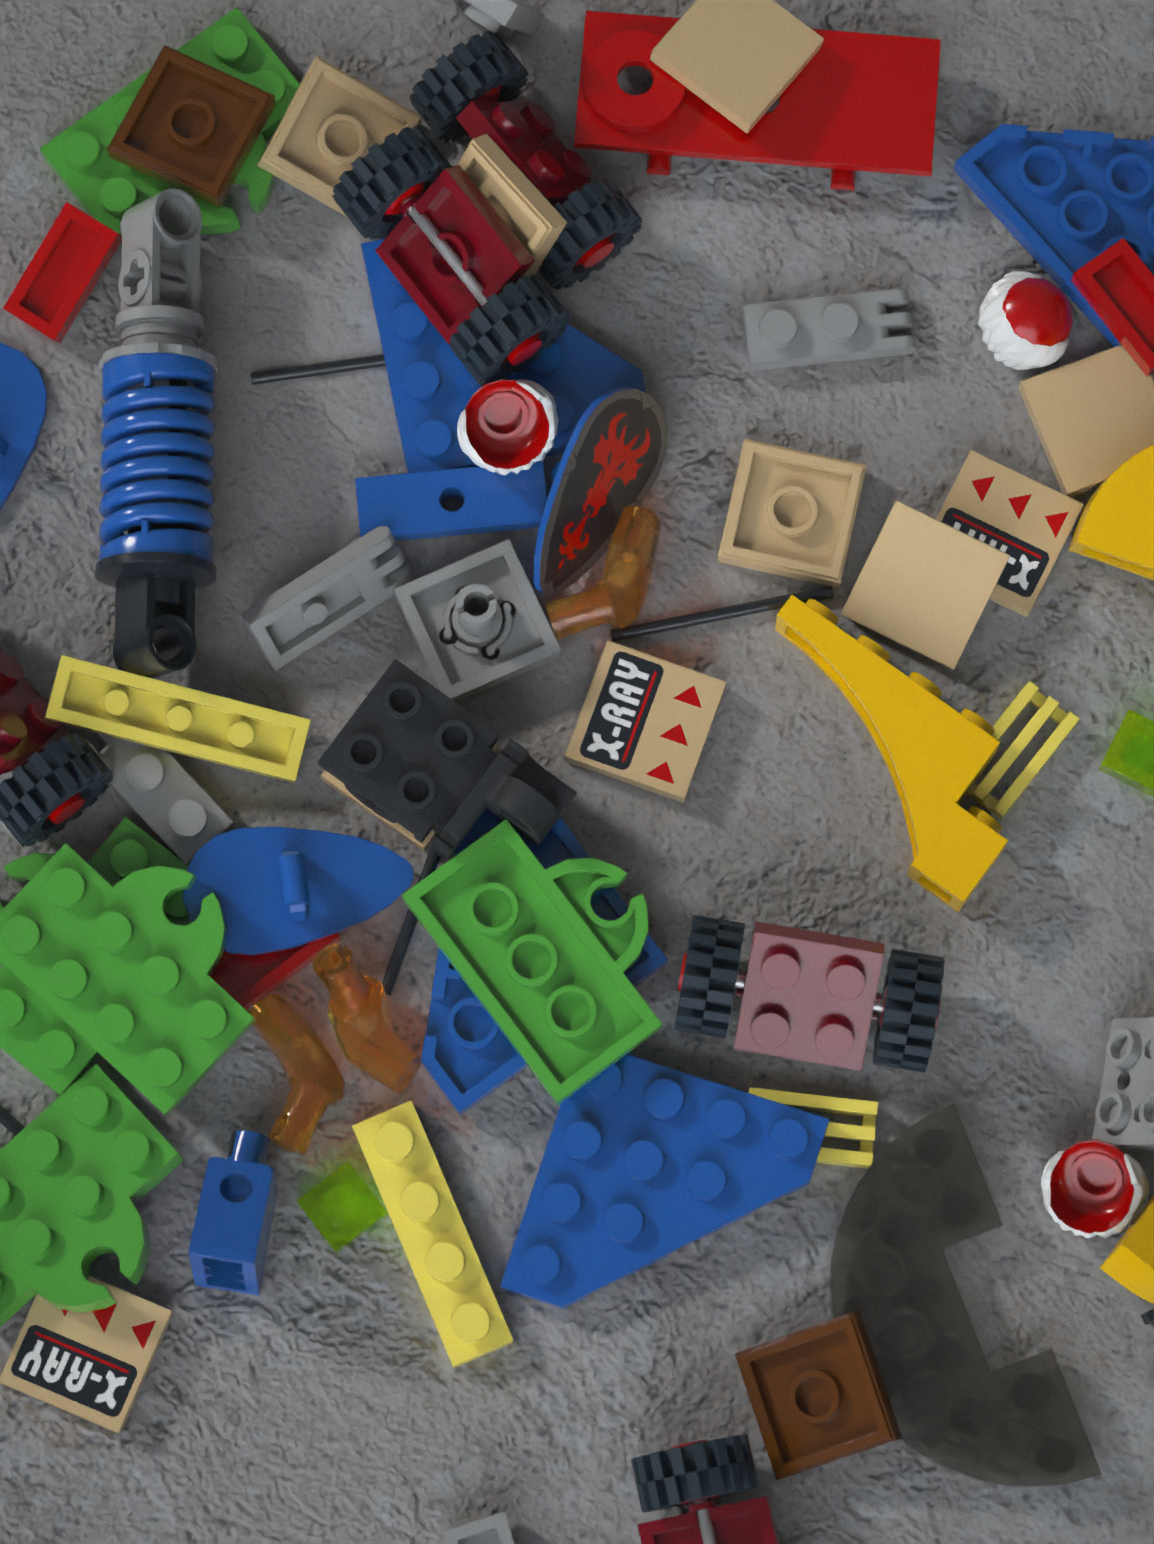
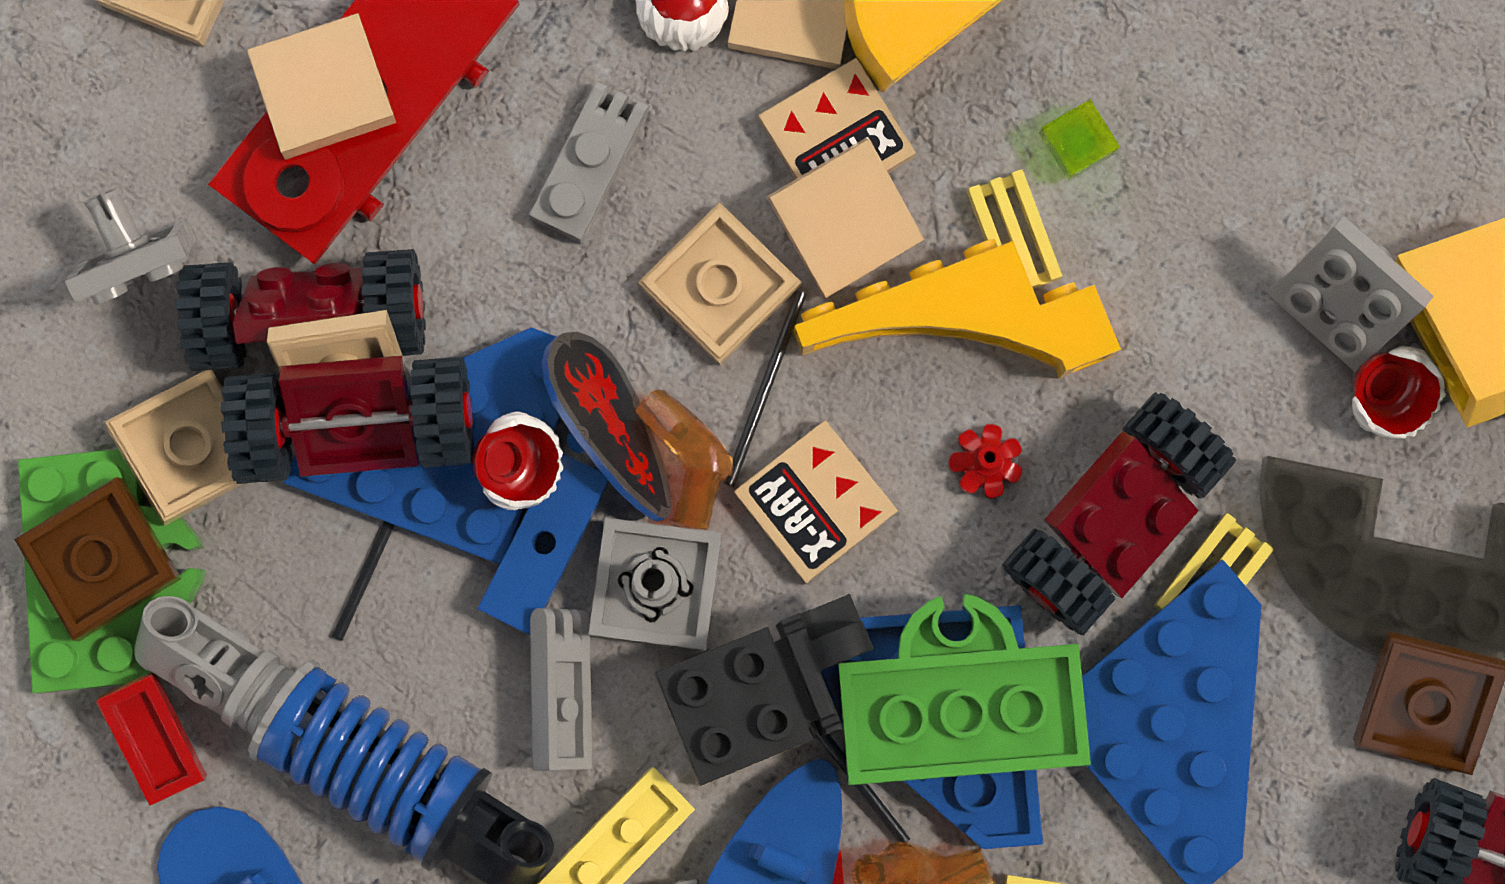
camera: 55 degrees left, 5 degrees up
(782, 865) = (980, 472): none -> red plant

